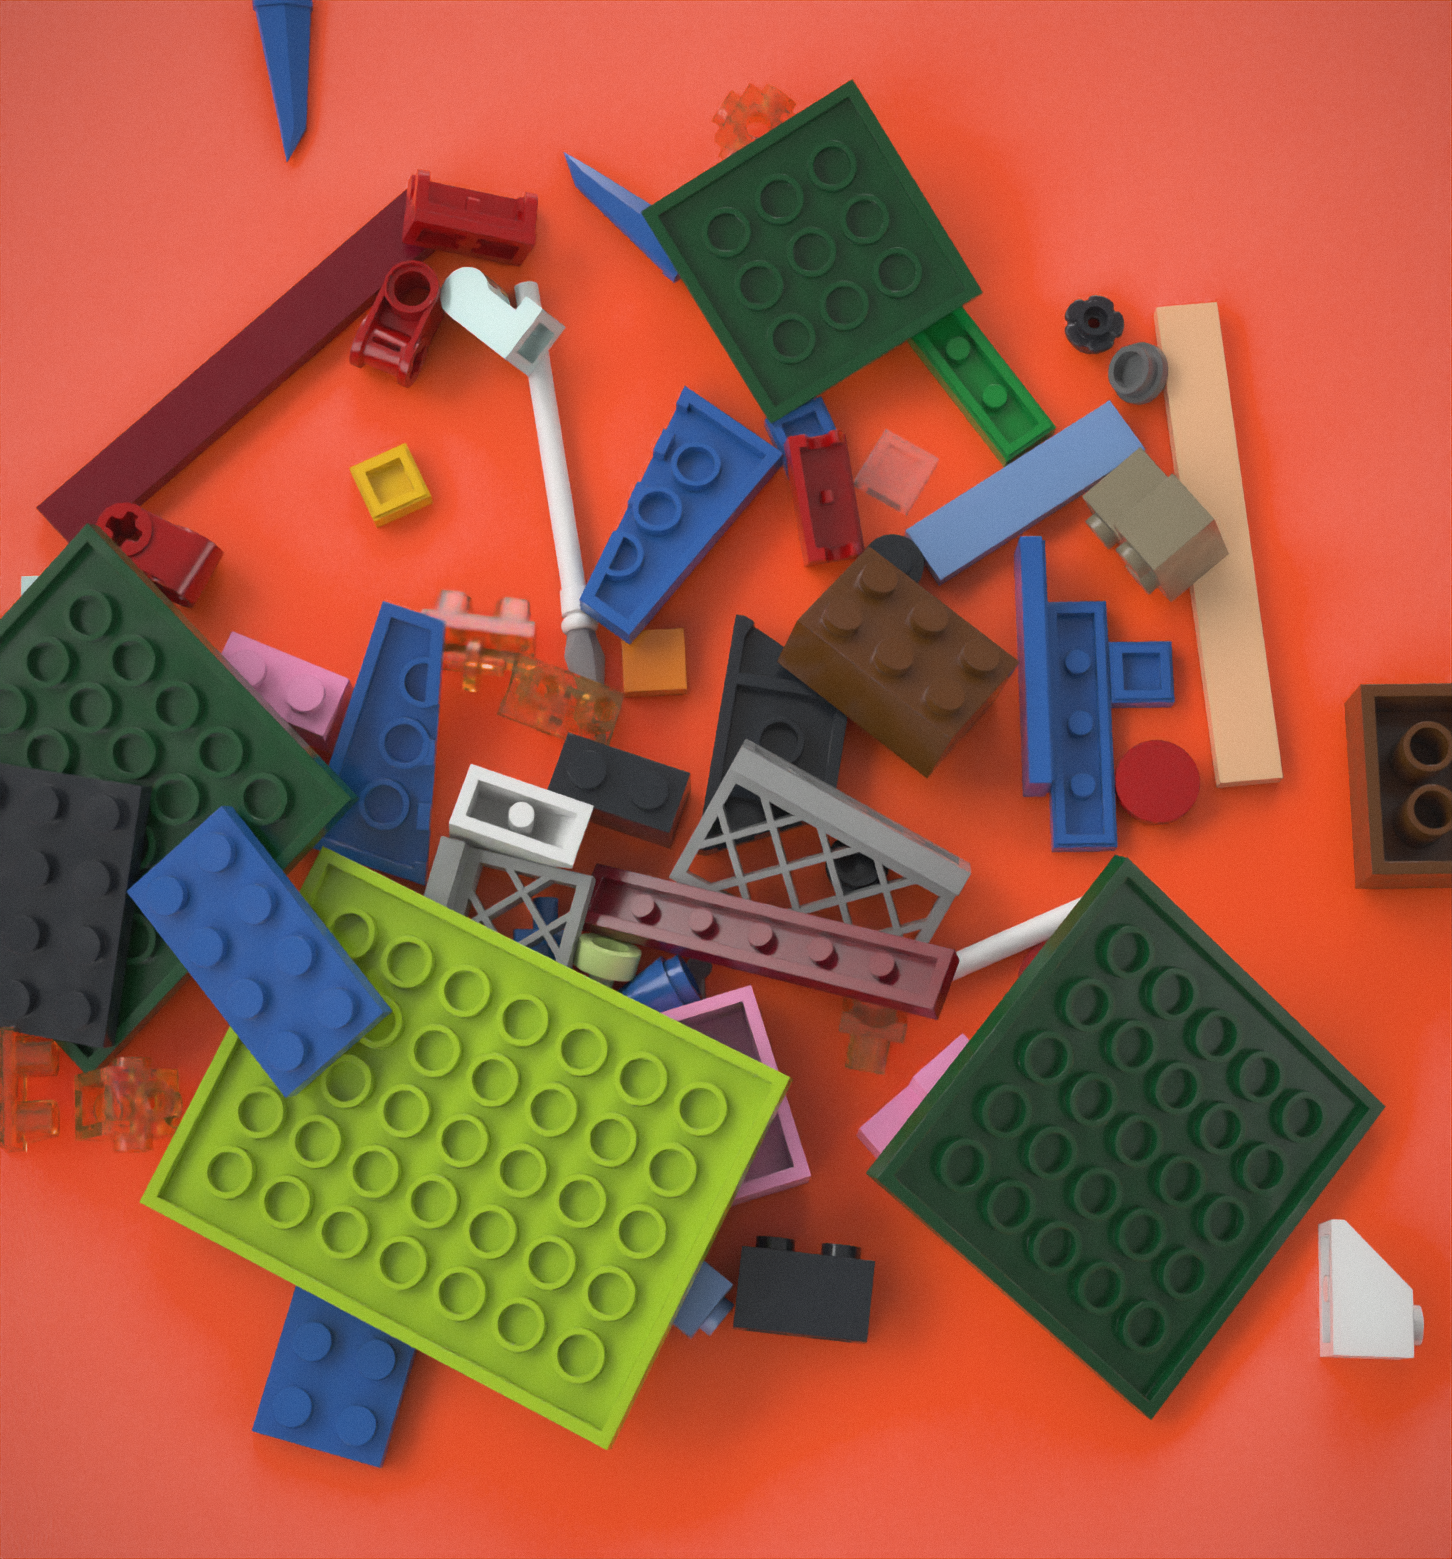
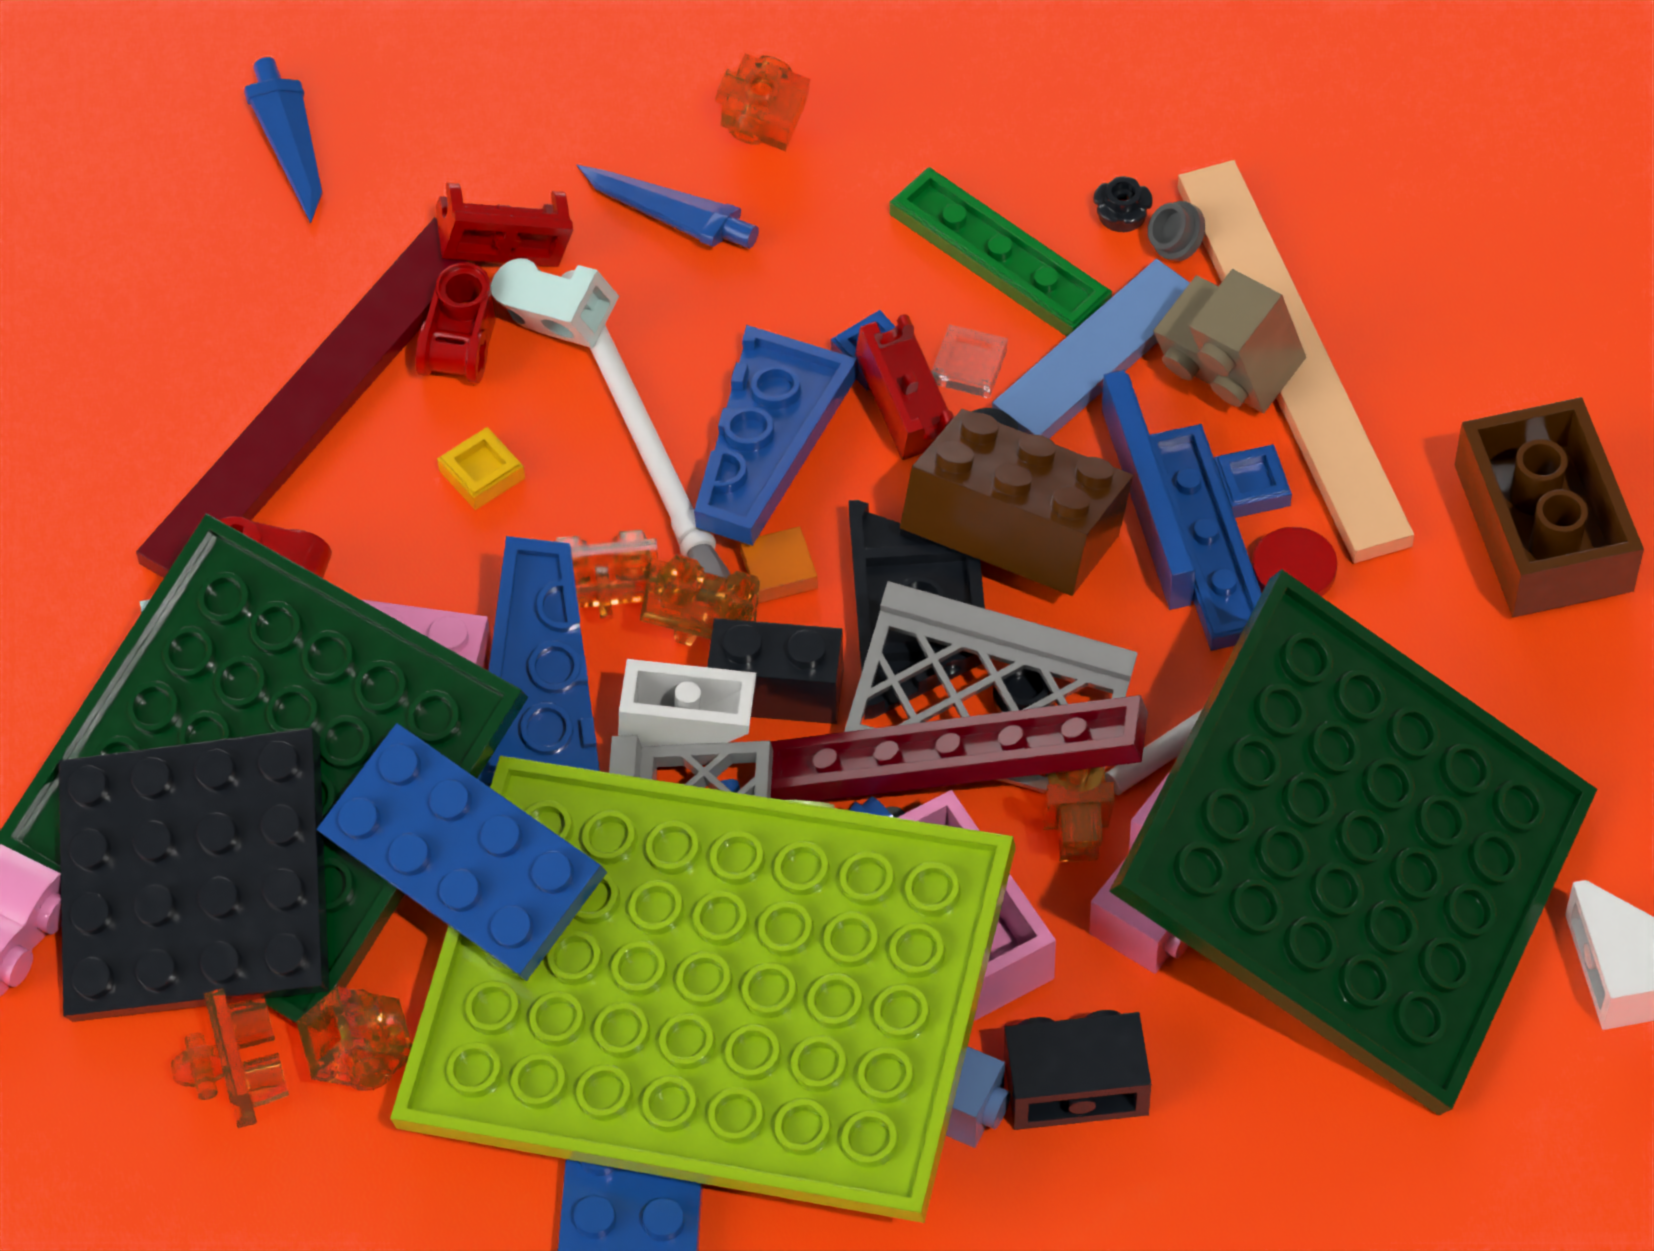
camera: 10 degrees left, 20 degrees down
(812, 252) = (839, 184): dark green plate -> none

